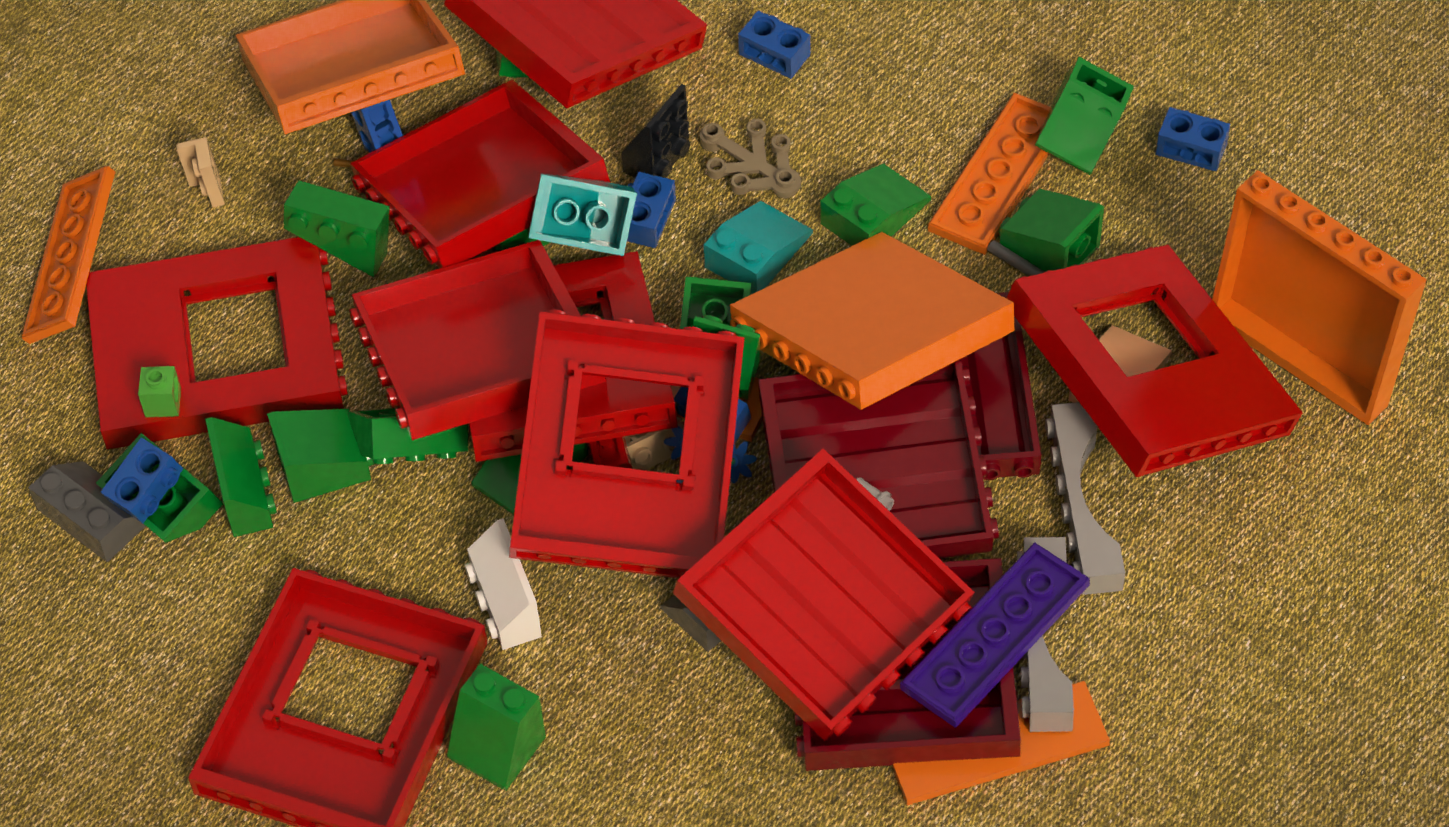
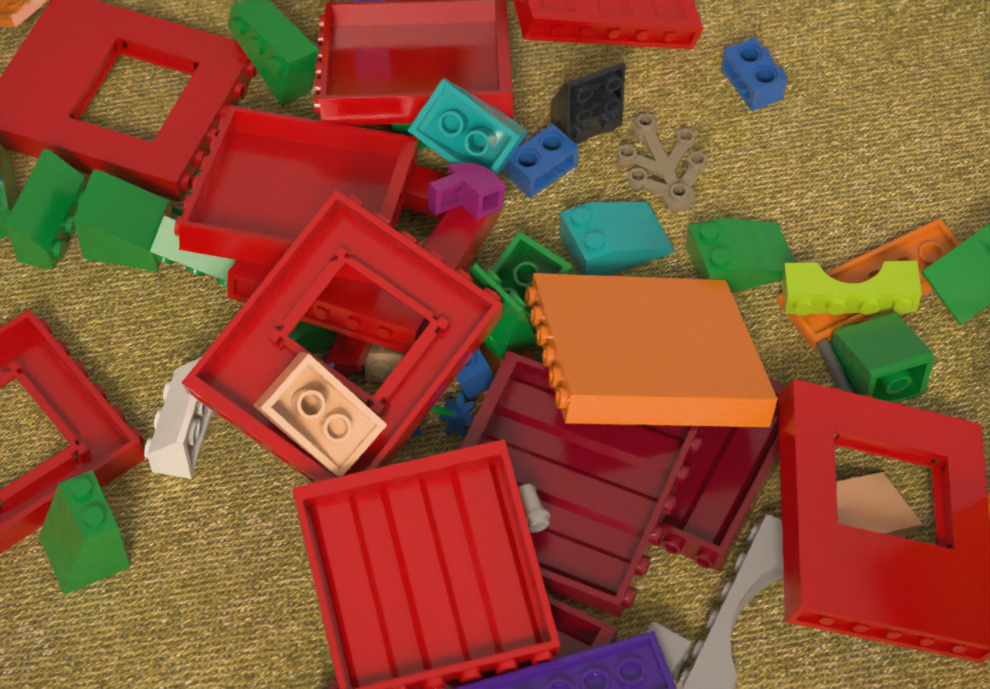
camera: 30 degrees right, 0 degrees up
(159, 391) = (32, 110): bright green brick -> none
(618, 260) = (469, 186): none -> magenta brick
(651, 509) = (320, 414): none -> light nougat slope
(957, 204) = (812, 291): none -> lime arch

